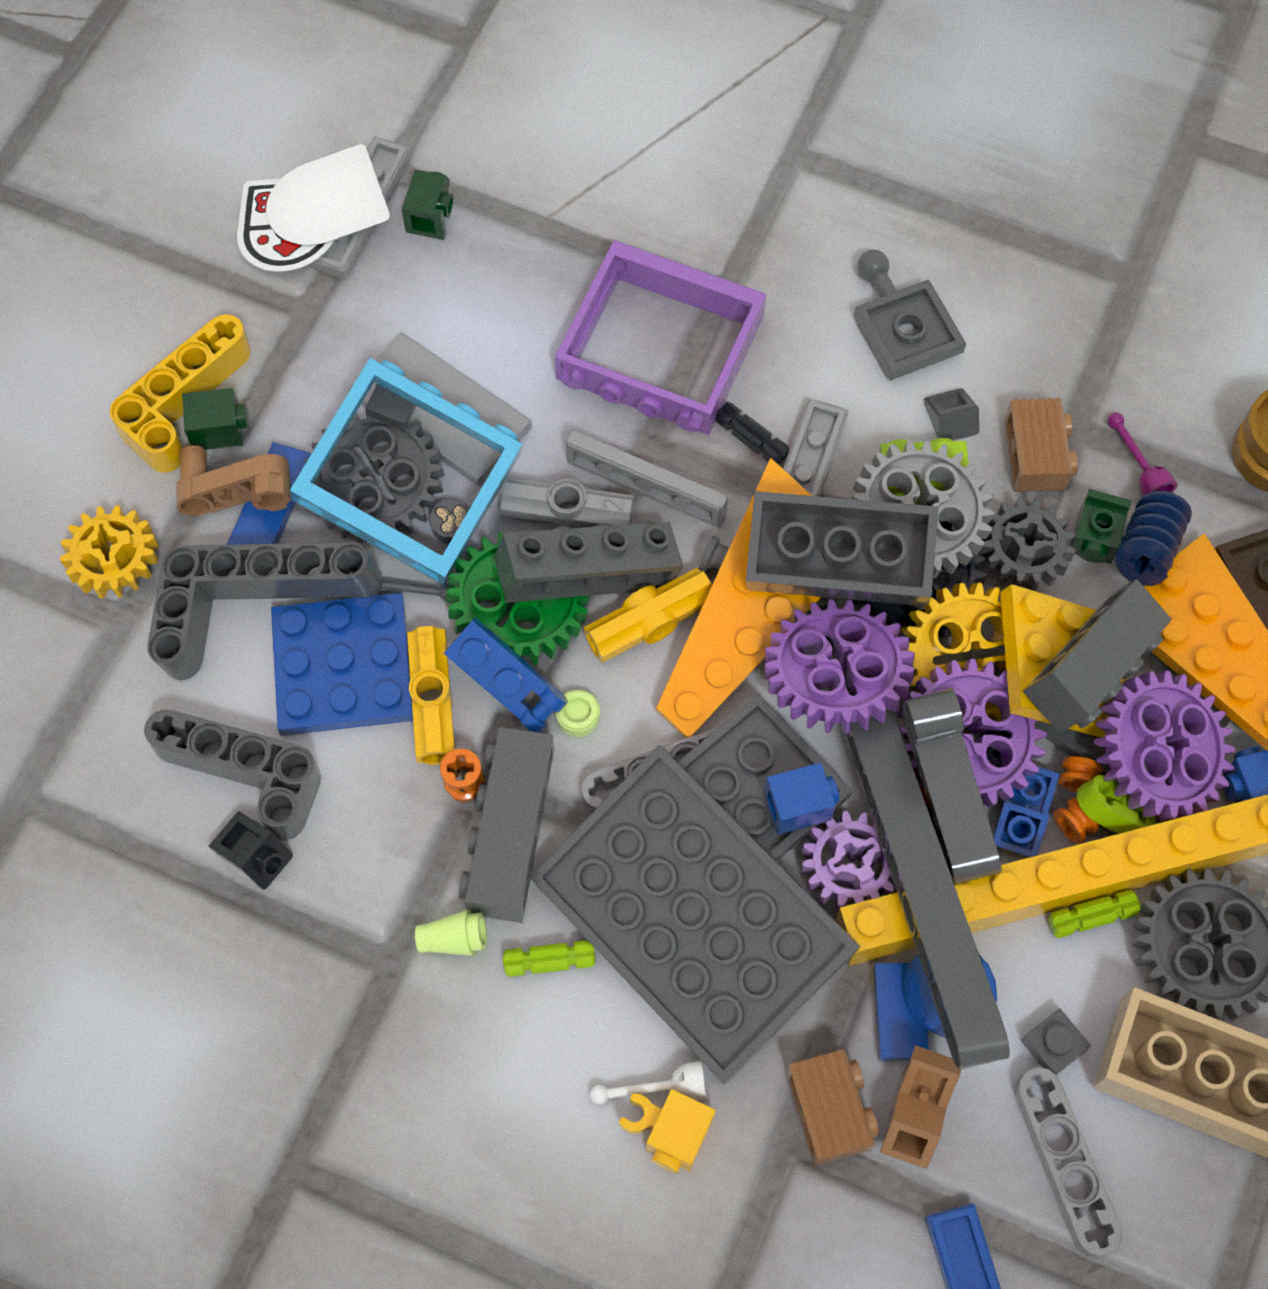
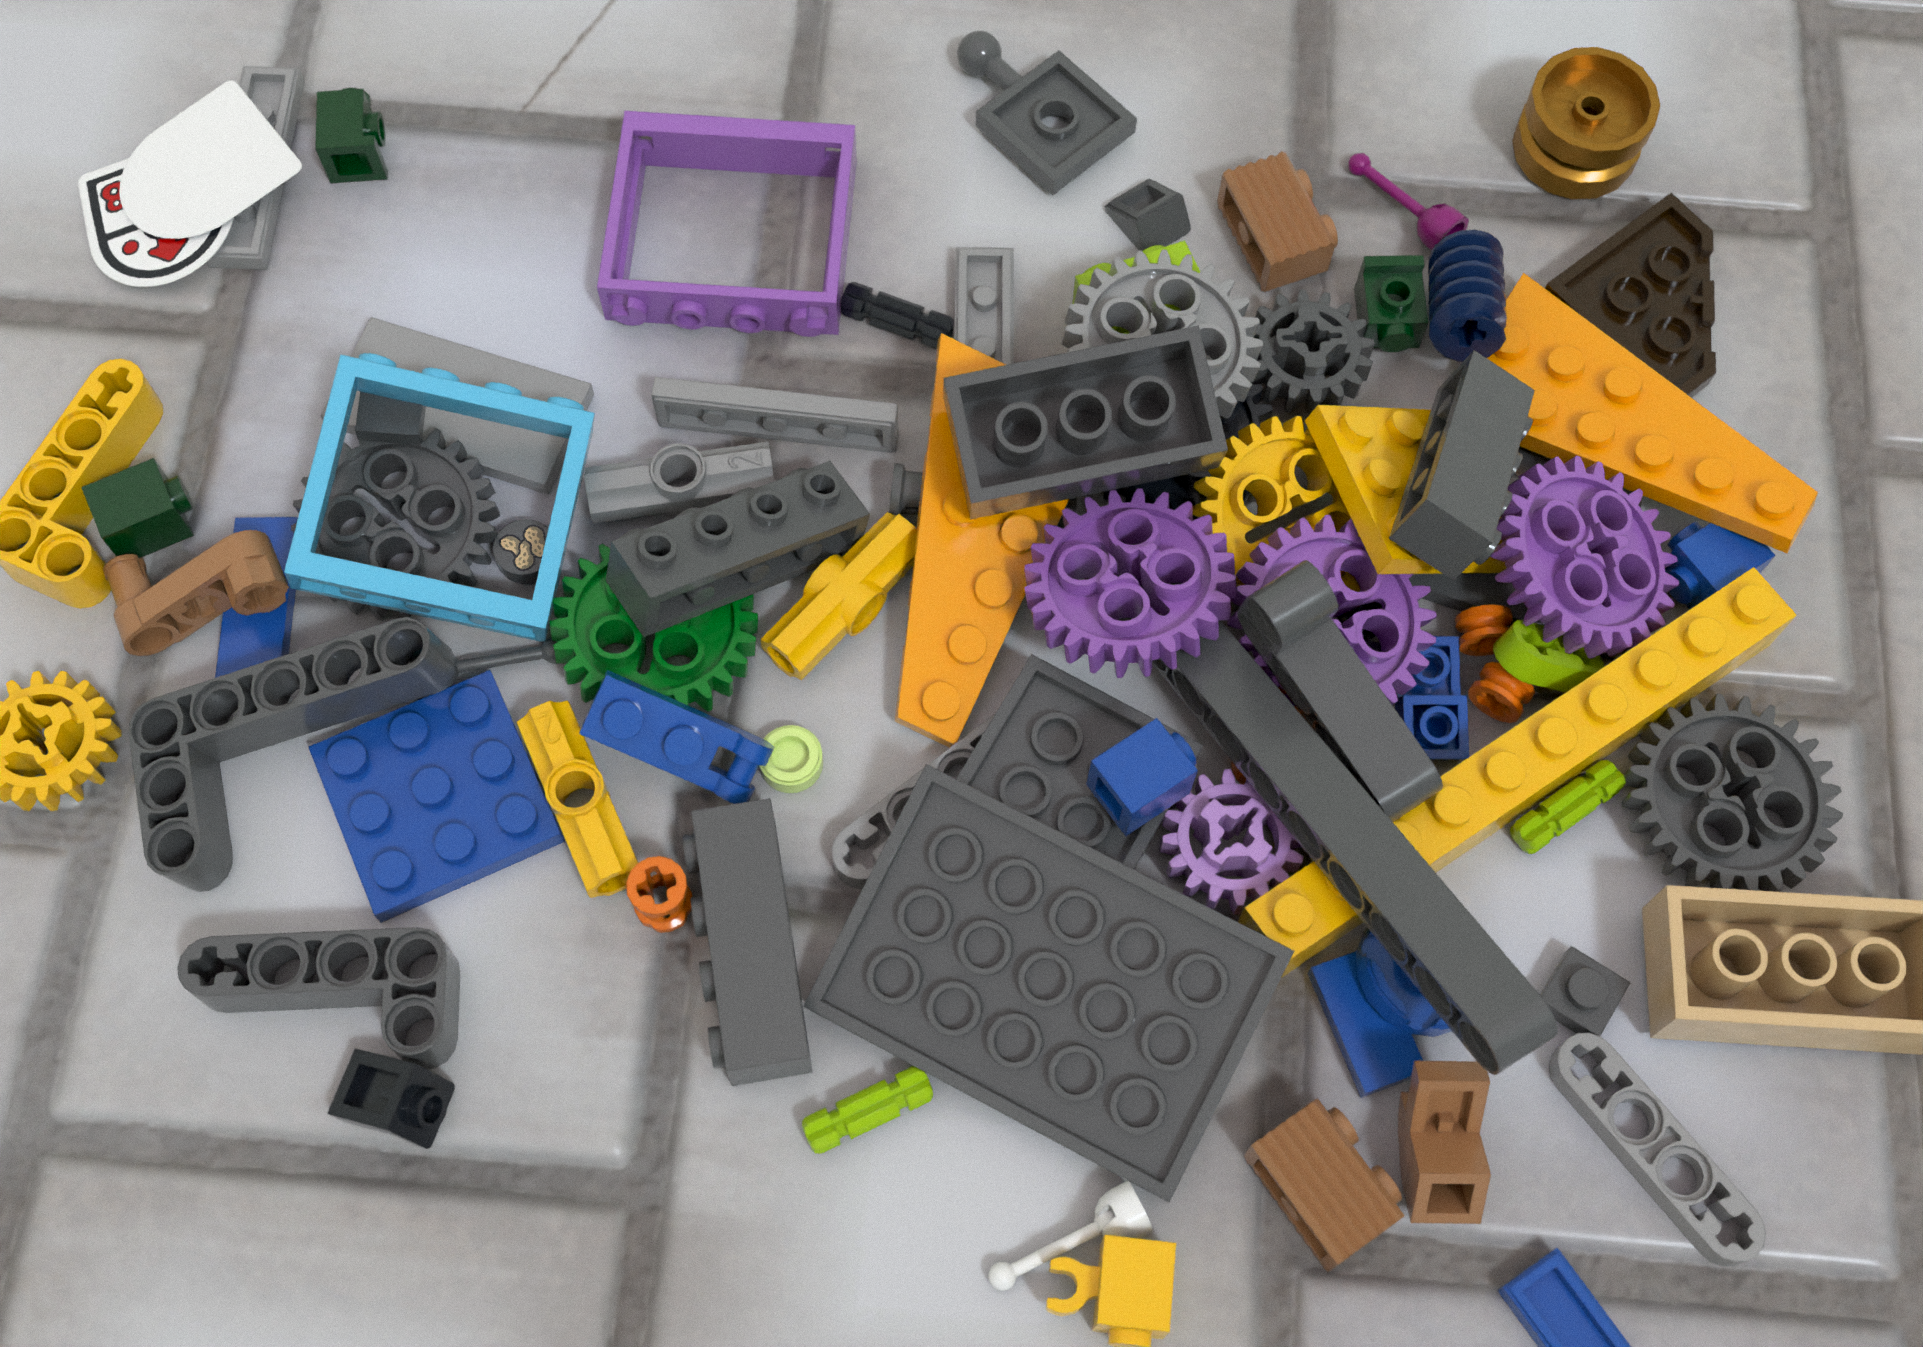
camera: 20 degrees left, 0 degrees up
(454, 934) = (722, 1122): yellowish green cone -> none

